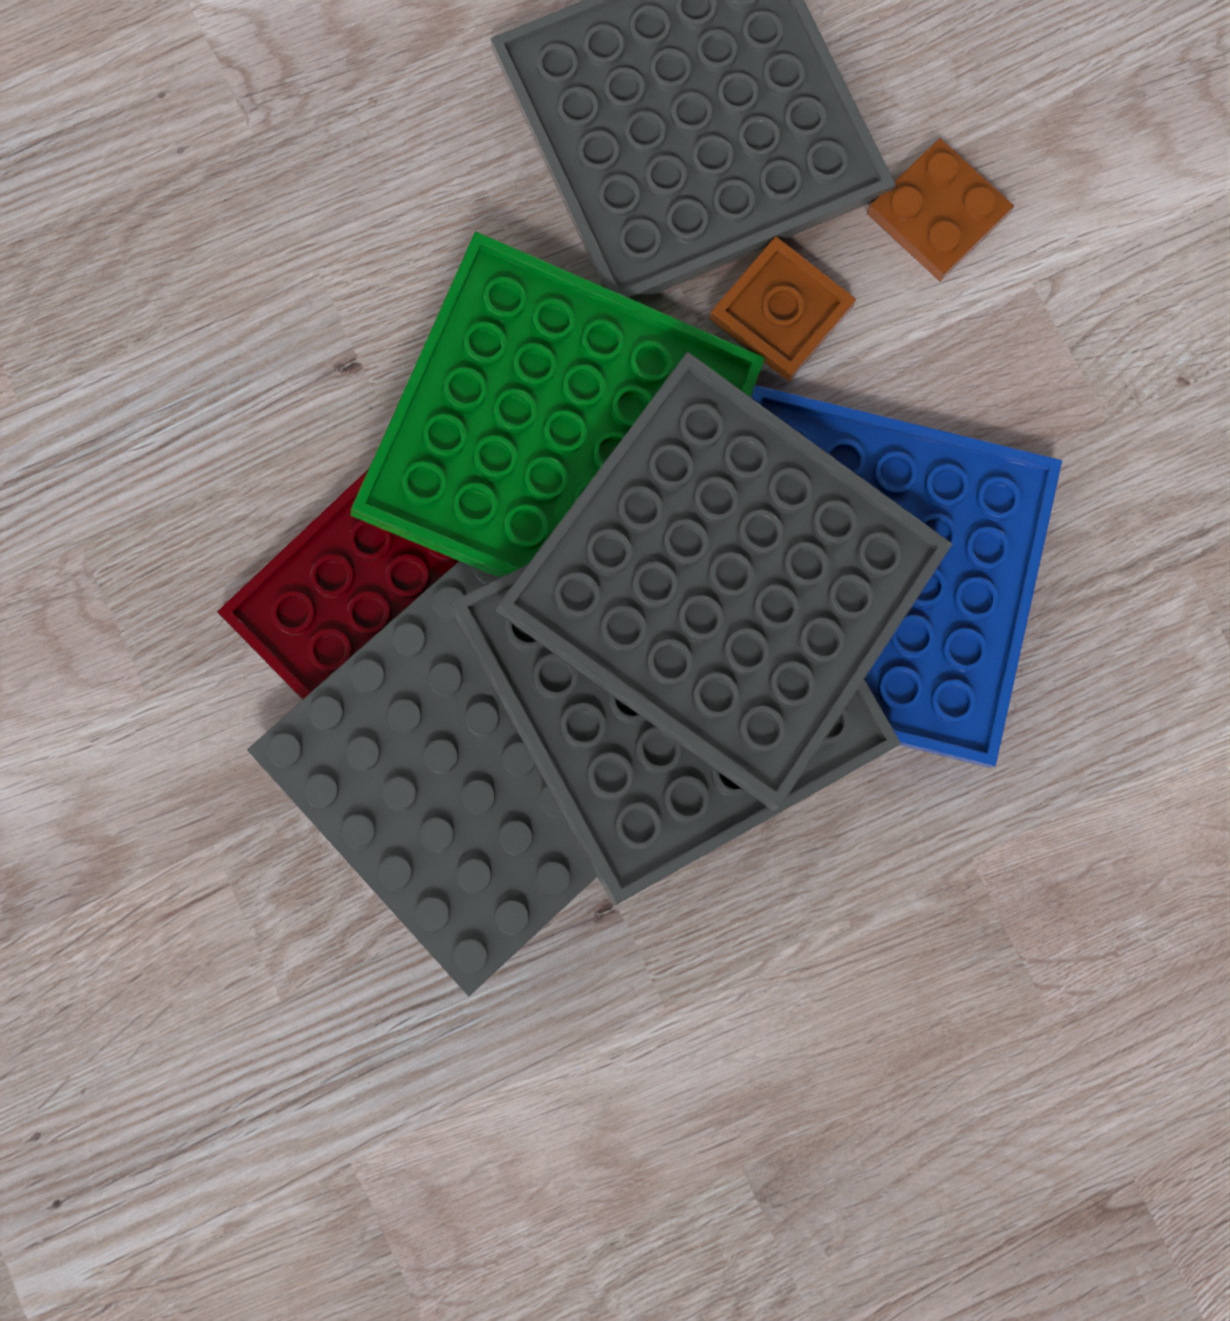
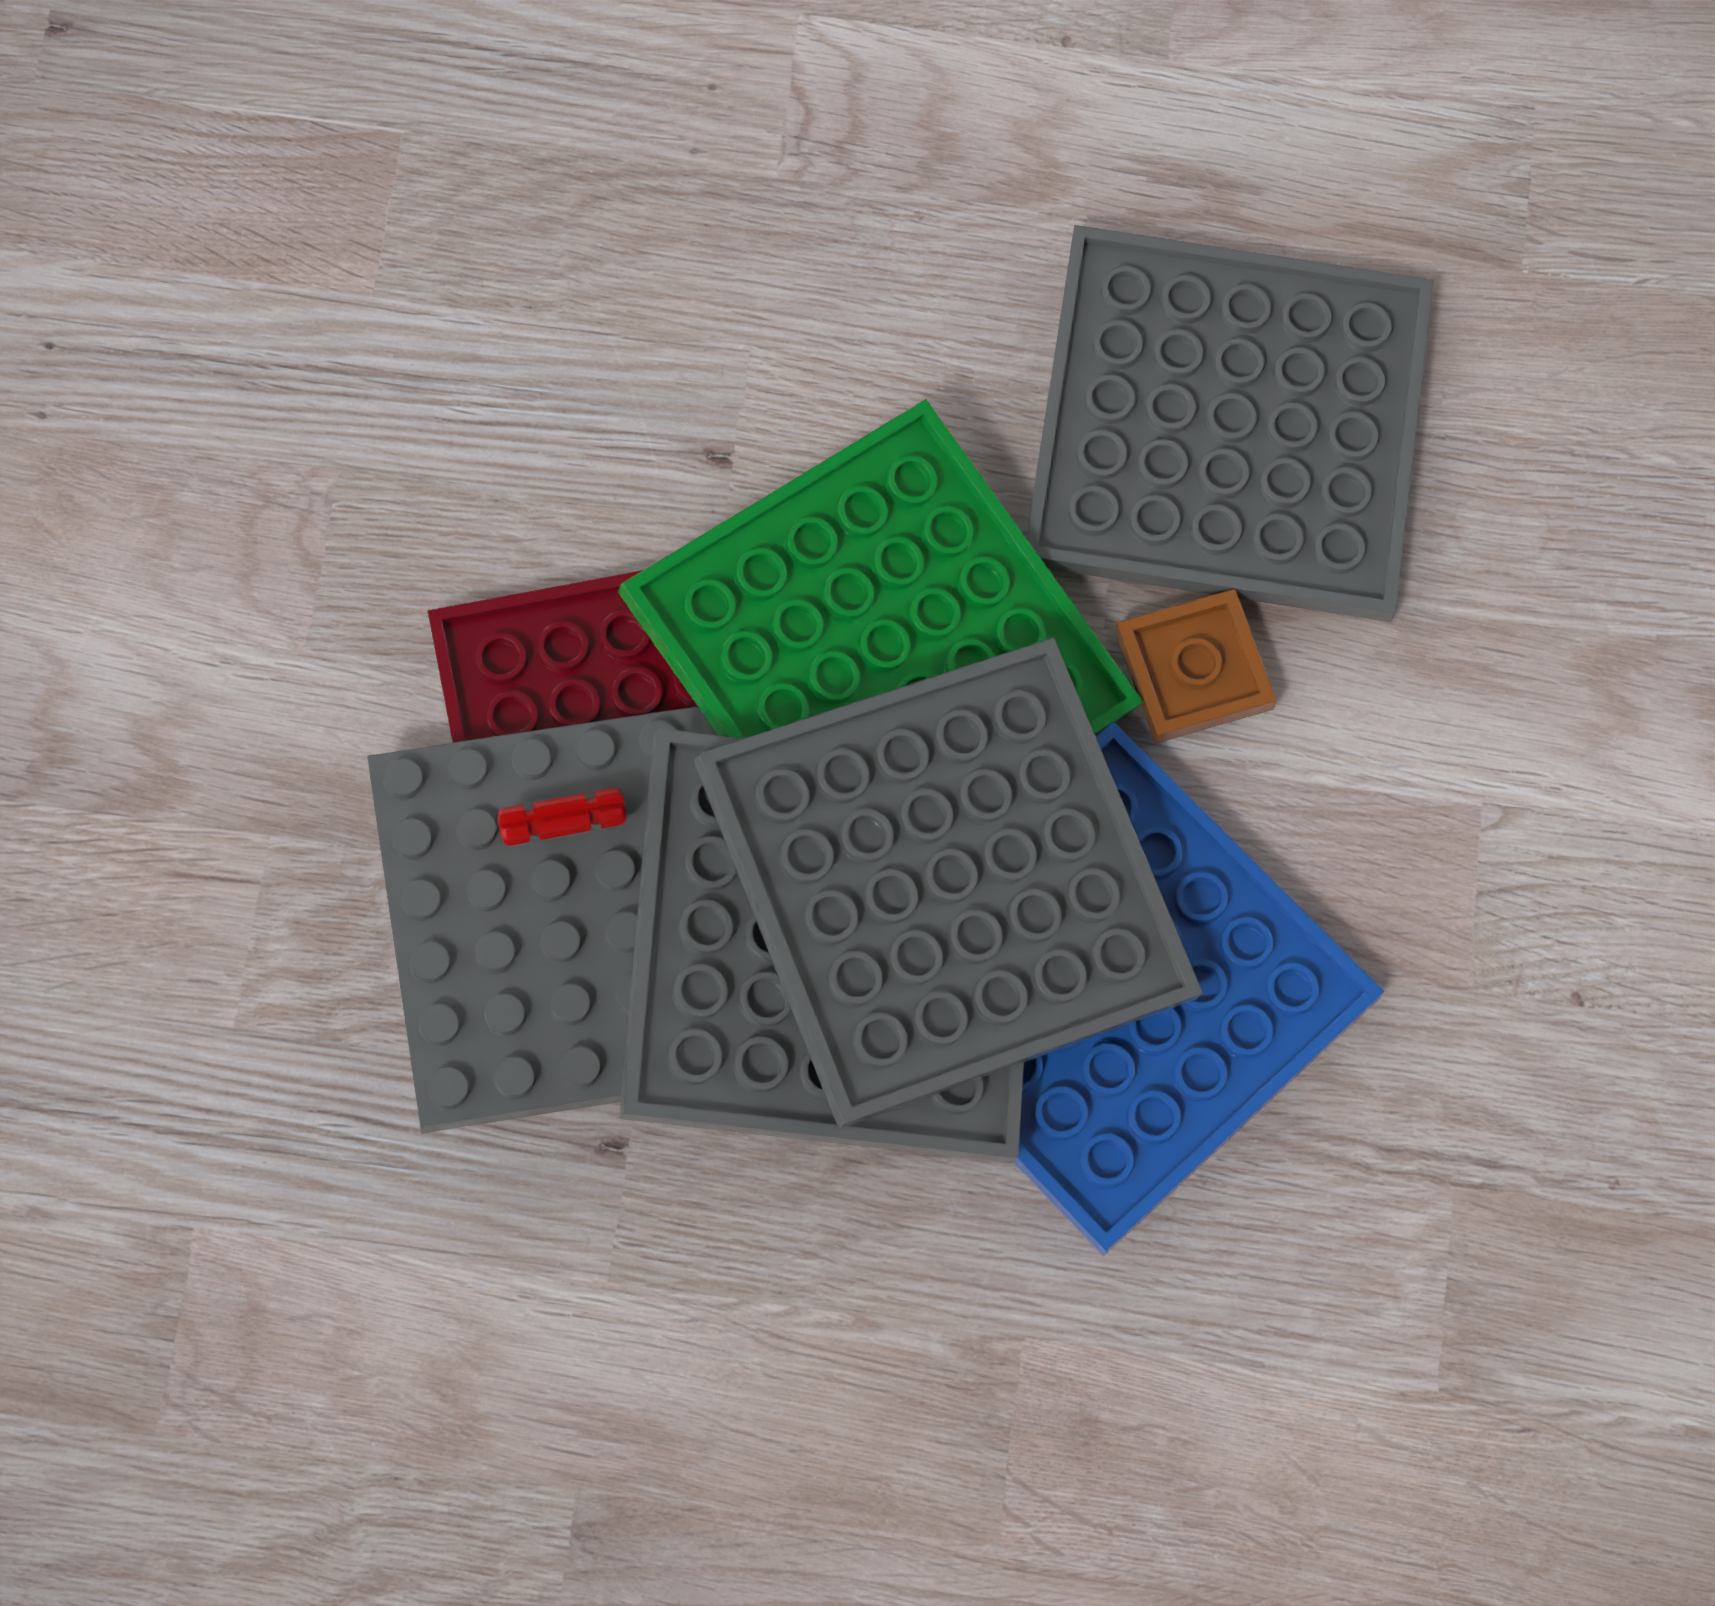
camera: 30 degrees right, 10 degrees down
(420, 706) = (562, 816): none -> red axle
(940, 209) = (1430, 668): dark orange plate -> none

